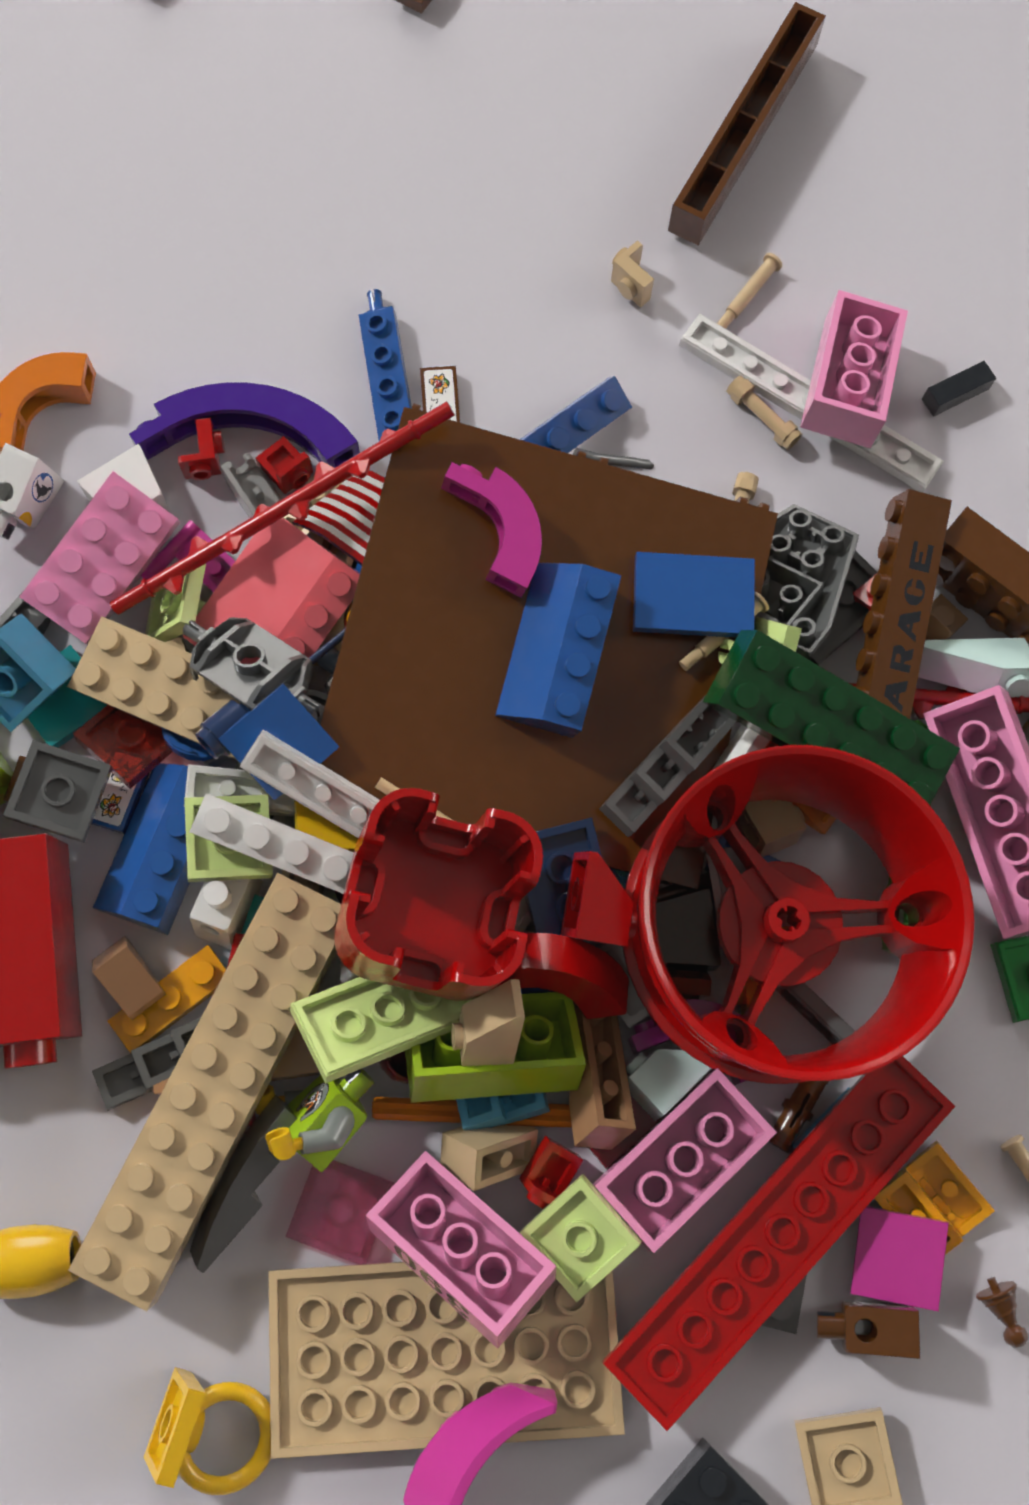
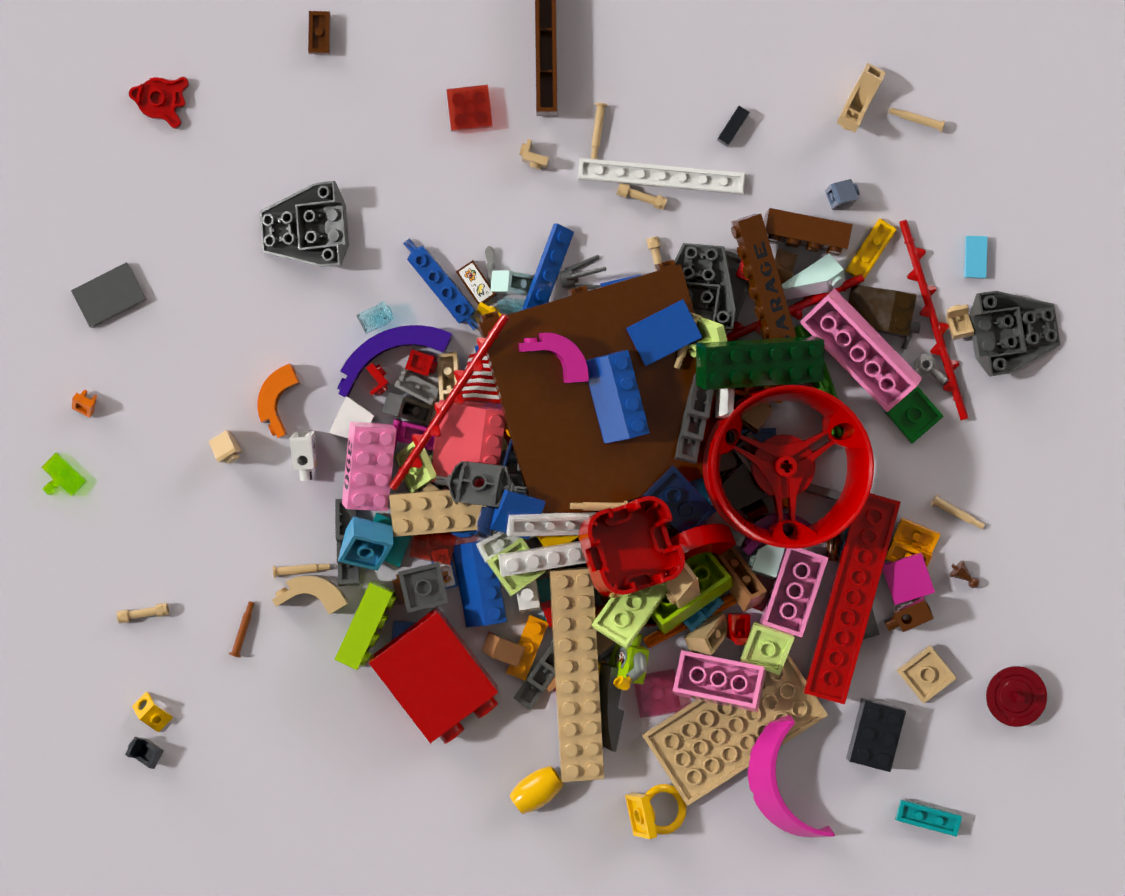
camera: 25 degrees left, 15 degrees up
(215, 509) = (408, 409): none -> dark grey slope
(247, 195) = (307, 226): none -> dark grey wedge
(259, 365) = (375, 317): none -> clear light blue bracket
(477, 390) = (489, 252): none -> light grey piece
(493, 413) = (511, 282): none -> light aqua slope
(576, 169) = (469, 108): none -> clear red plate
(597, 903) = (698, 509): red slope -> none
(854, 369) = (676, 152): bright pink brick -> none

